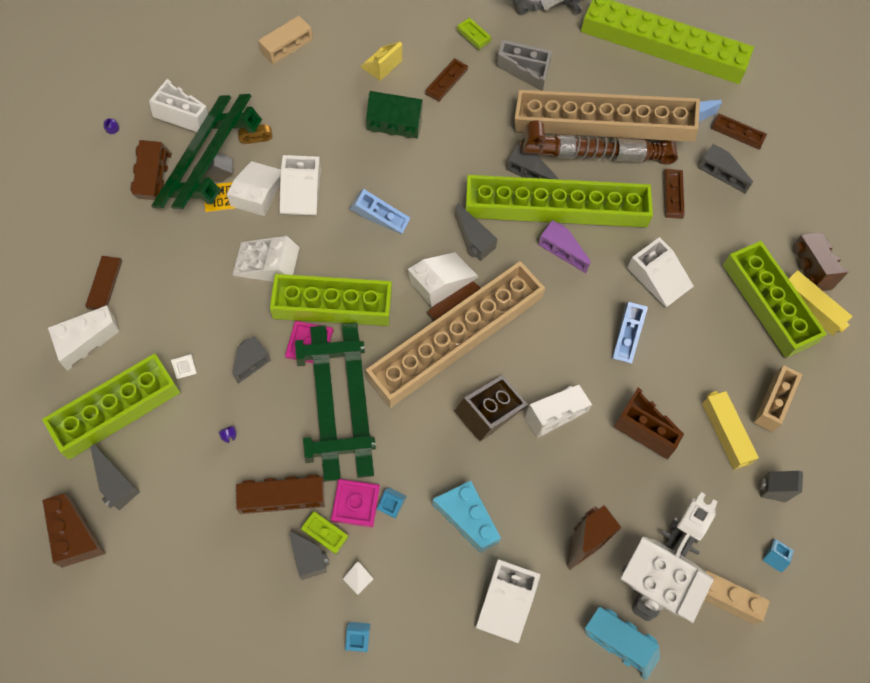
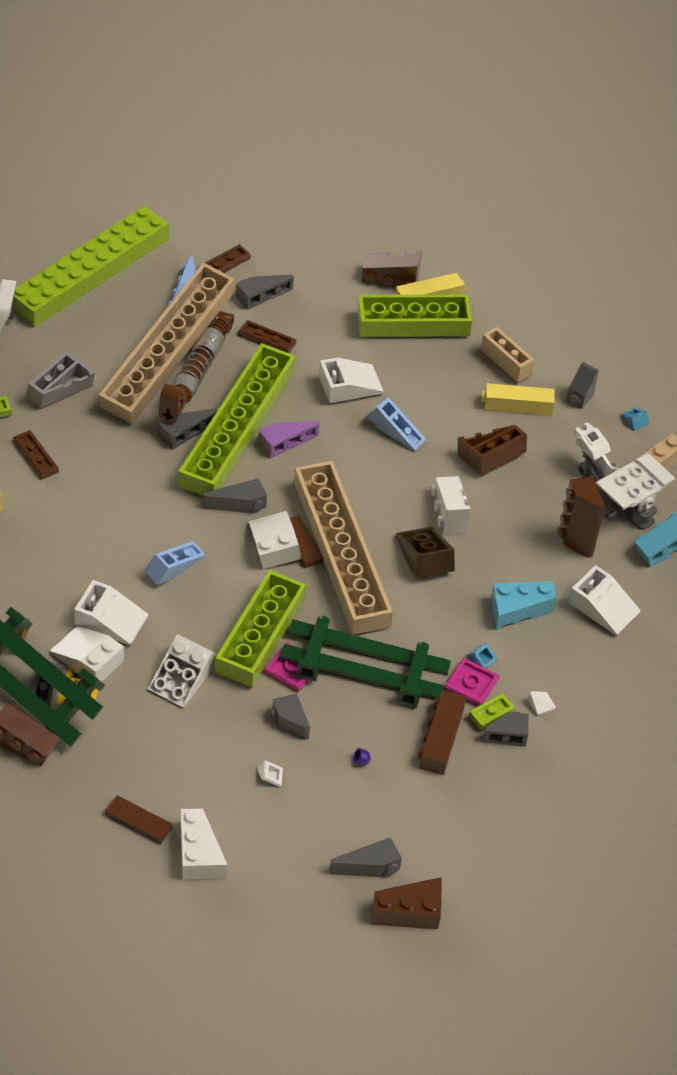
camera: 70 degrees left, 15 degrees down
(110, 406) = (294, 837): lime brick -> none
(357, 637) = (592, 719): dark azure slope -> none
(394, 114) = (67, 507): dark green slope -> none

